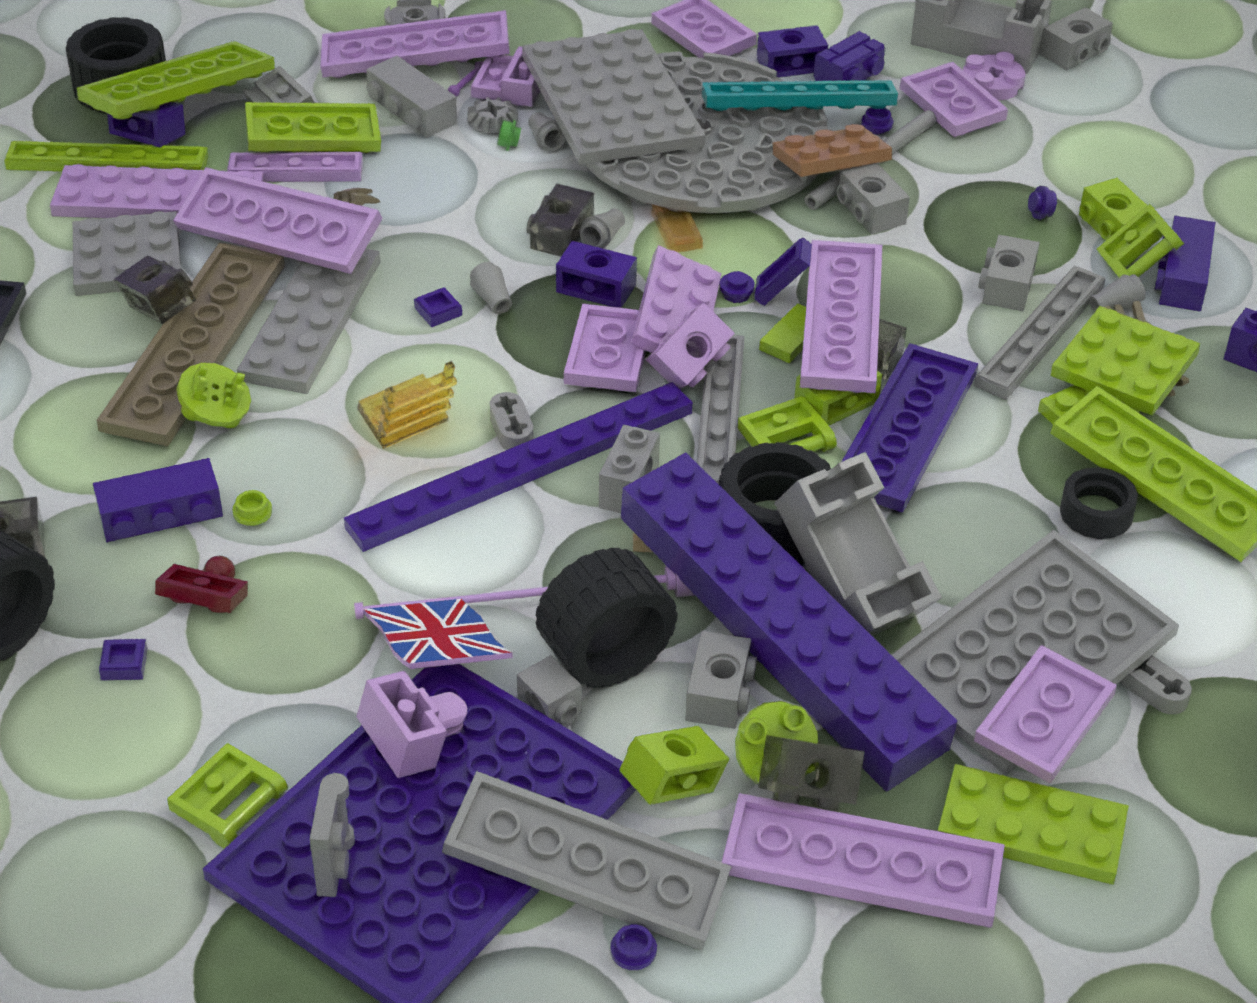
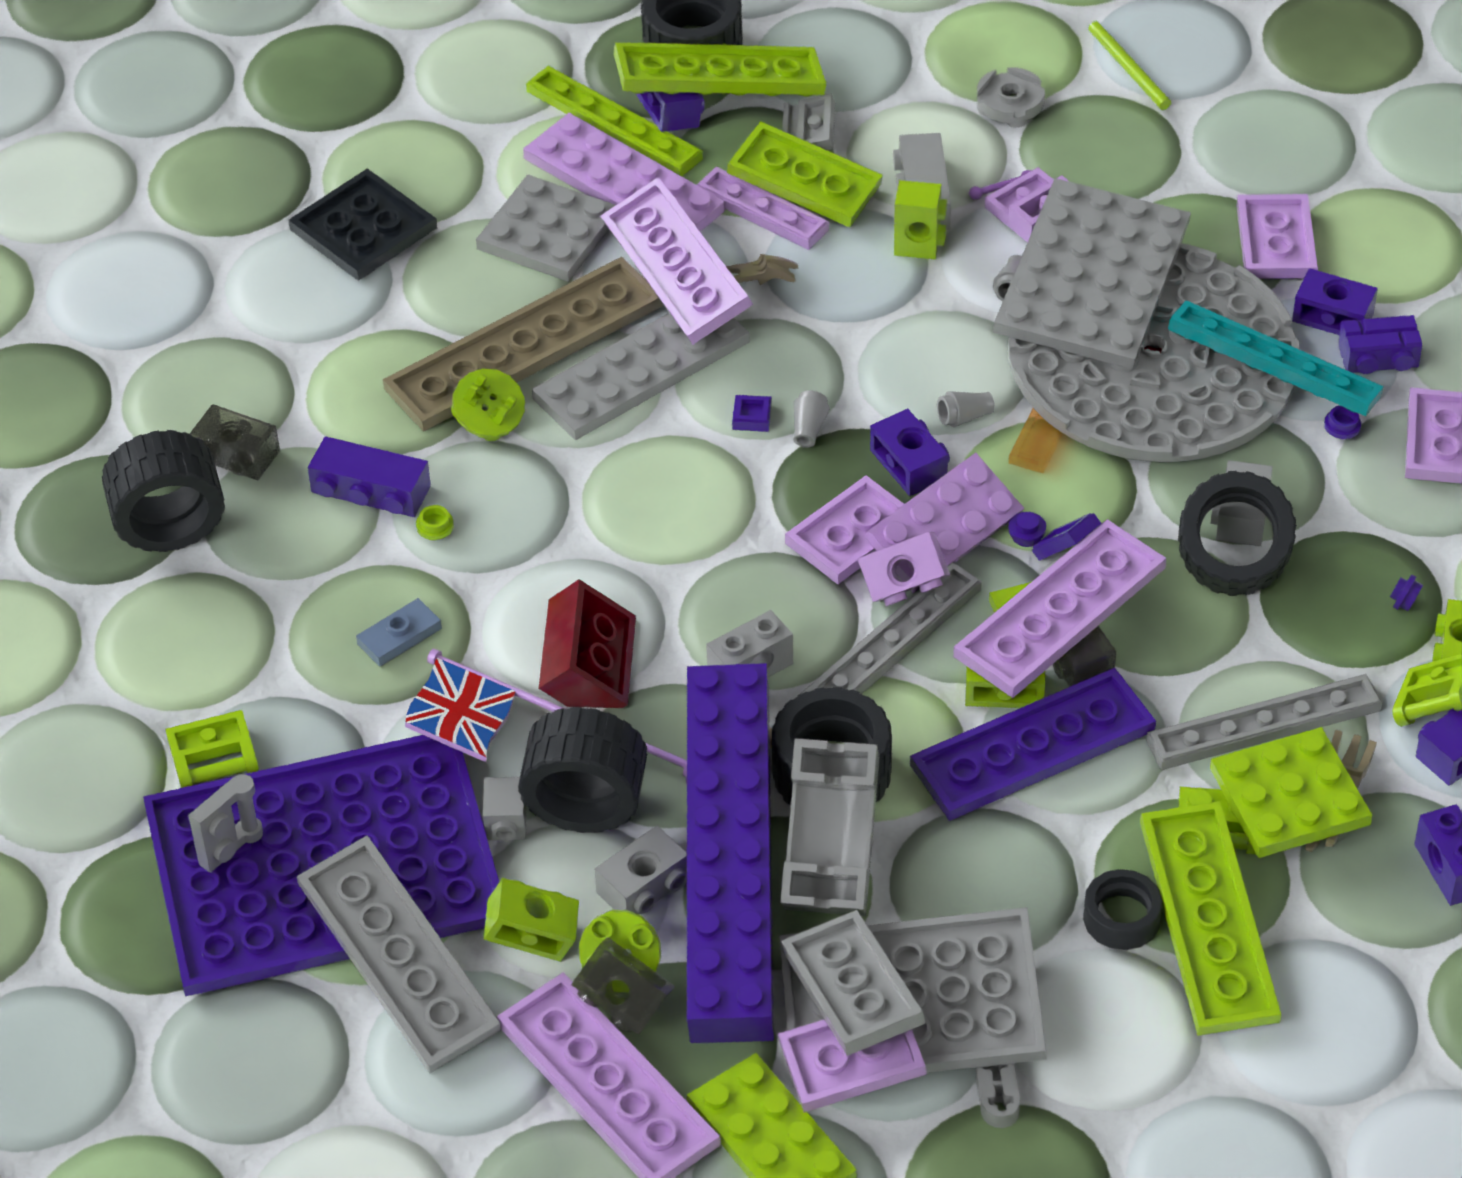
camera: 40 degrees right, 5 degrees up
(123, 659) = (237, 599): dark purple tile -> none
(156, 289) = (525, 278): clear smoke brick -> none
(209, 587) = (340, 575): dark red plate -> none
(304, 609) = (398, 632): none -> sand blue plate
(408, 722) = (365, 769): lavender brick -> none
(409, 406) = (624, 498): clear yellow plate -> none
(416, 43) = (978, 126): lavender plate -> none
(442, 116) = (918, 219): none -> lime brick
(482, 118) = (991, 246): light grey gear -> none
(487, 536) = (587, 649): none -> dark red slope
(504, 423) = (713, 558): light grey beam -> none
(508, 134) = (975, 266): bright green plate -> none
(513, 467) = (692, 599): dark purple plate -> none
(559, 219) = (929, 376): clear smoke brick -> none
(633, 947) = (380, 1039): dark purple plate -> none
(788, 422) = (923, 682): lime plate -> none
(831, 150) = (1240, 435): medium nougat plate -> none
(896, 141) = (1309, 458): light grey piece -> none
(931, 184) = (1243, 488): none -> black tyre
(1000, 654) = (852, 982): none -> light grey plate
(1009, 272) = (1290, 648): light grey brick -> none
(1121, 291) = (1371, 725): light grey cone -> none

